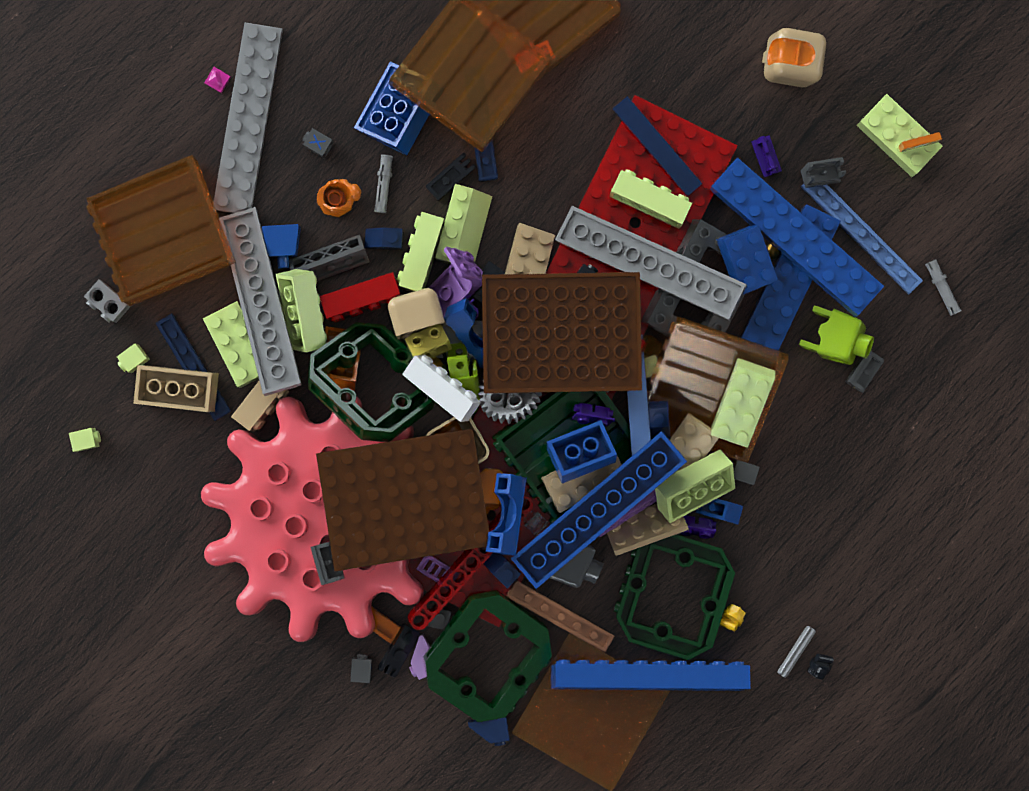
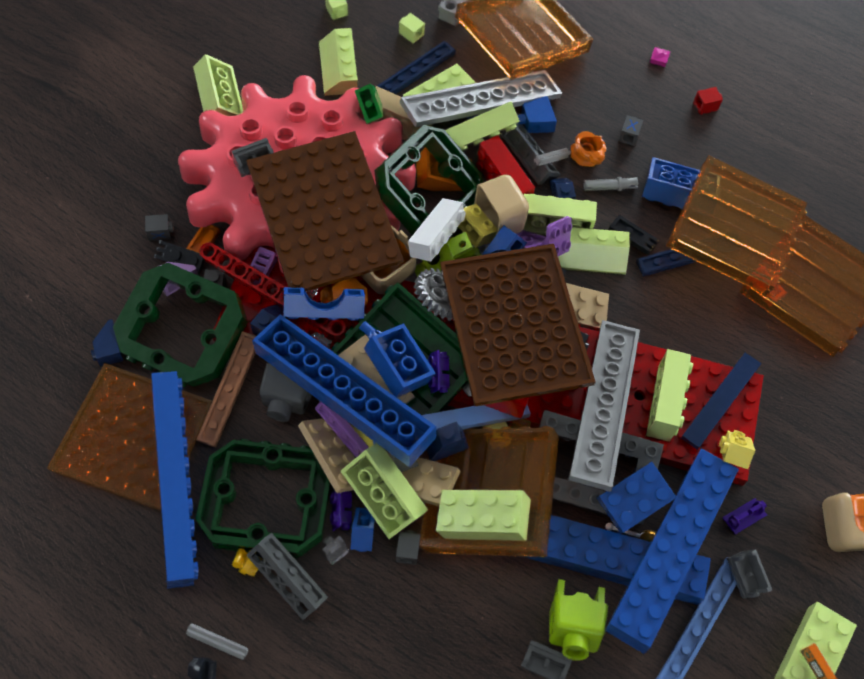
camera: 70 degrees right, 25 degrees down
(171, 450) = (338, 62): none -> yellowish green slope
(176, 388) = (392, 54): tan brick -> none
(190, 589) = (217, 86): none -> yellowish green slope
(247, 118) = (633, 80): light grey plate -> none
(264, 428) = (369, 103): none -> green slope
(291, 44) = (708, 100): none -> red brick
(343, 240) = (552, 156): none -> light grey axle
(545, 470) = (368, 329): none -> blue arm
(716, 151) = (737, 449): none -> light yellow brick
(734, 538) = (334, 549): none -> clear tile
(754, 583) = (289, 574): none -> dark grey fence

